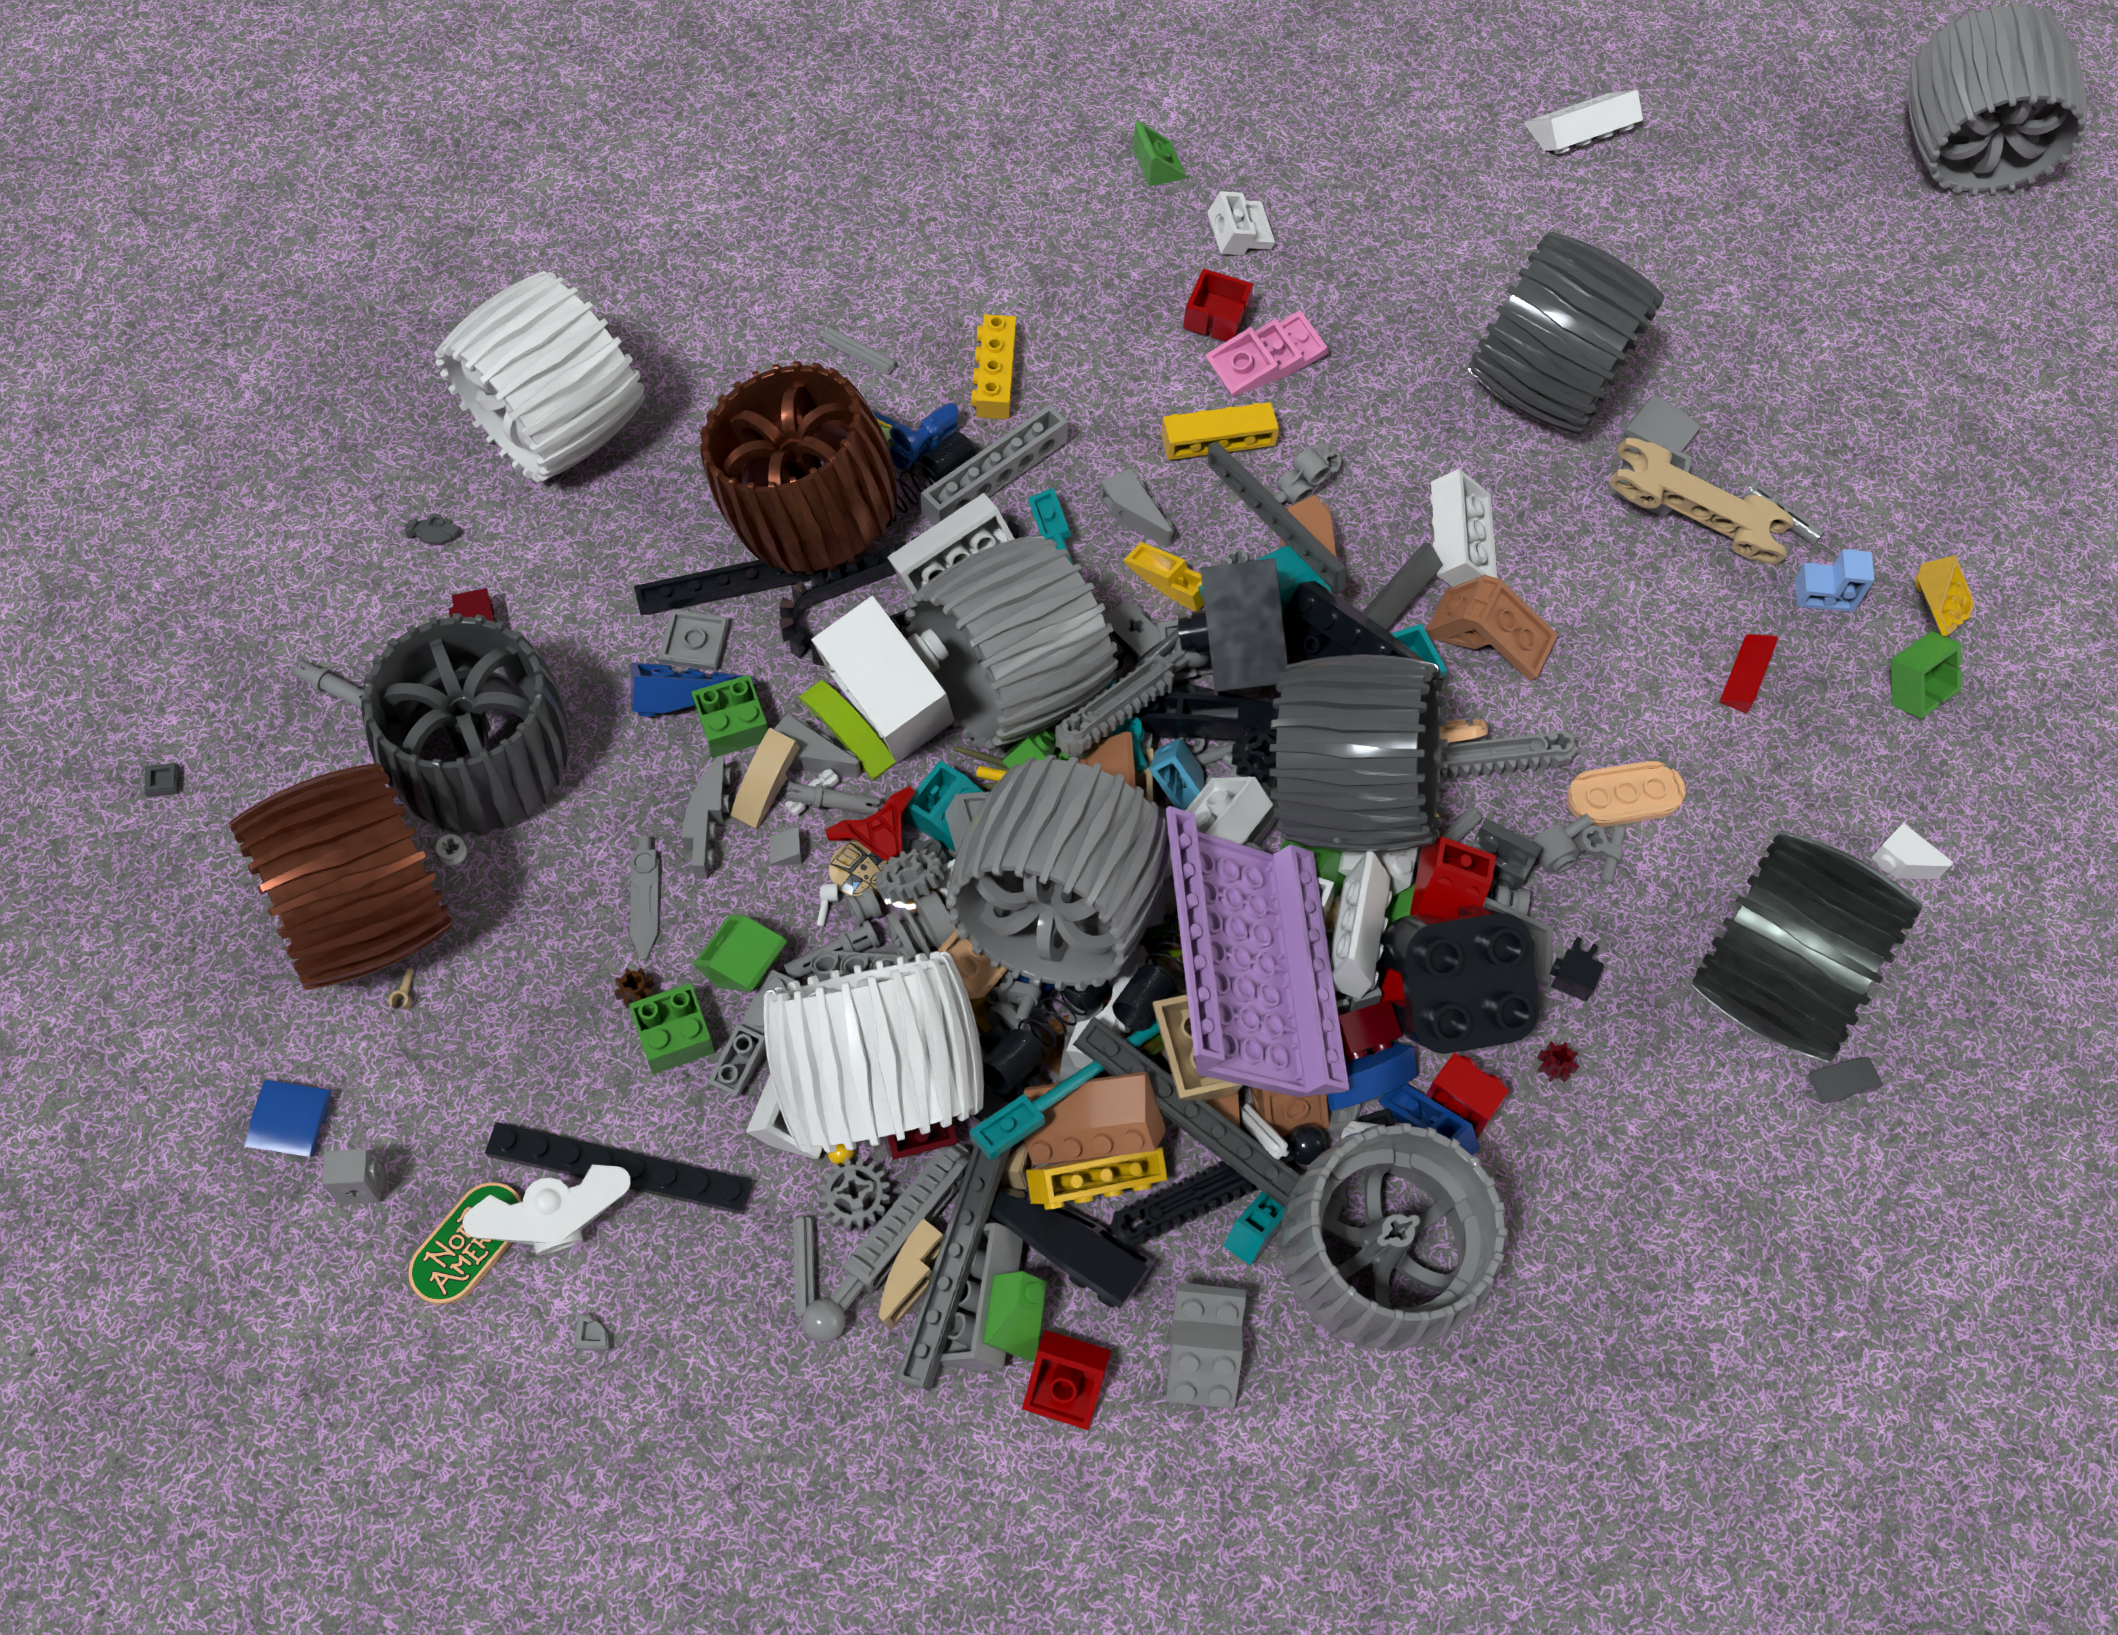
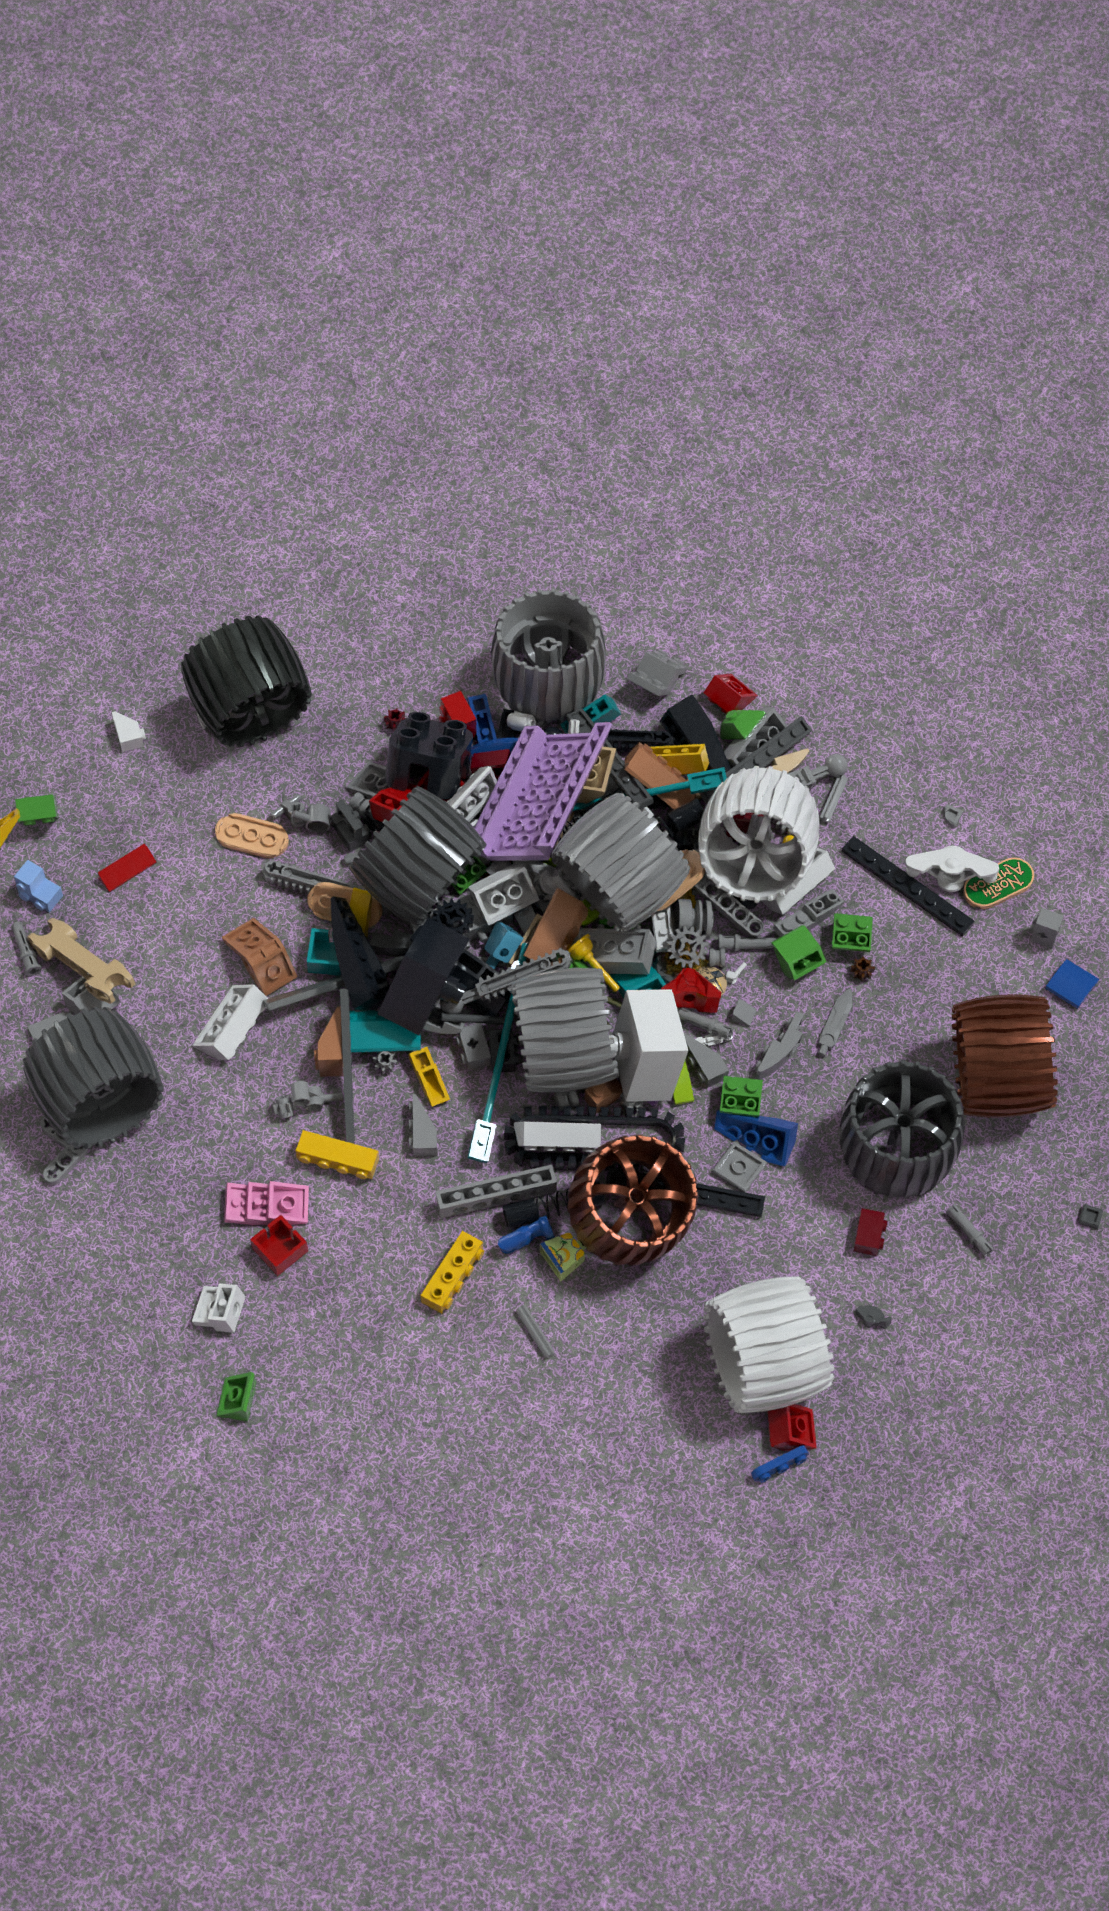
camera: 150 degrees left, 0 degrees up
(764, 778) = (737, 1050): tan slope -> none
(1576, 971) = (352, 755): black brick -> none

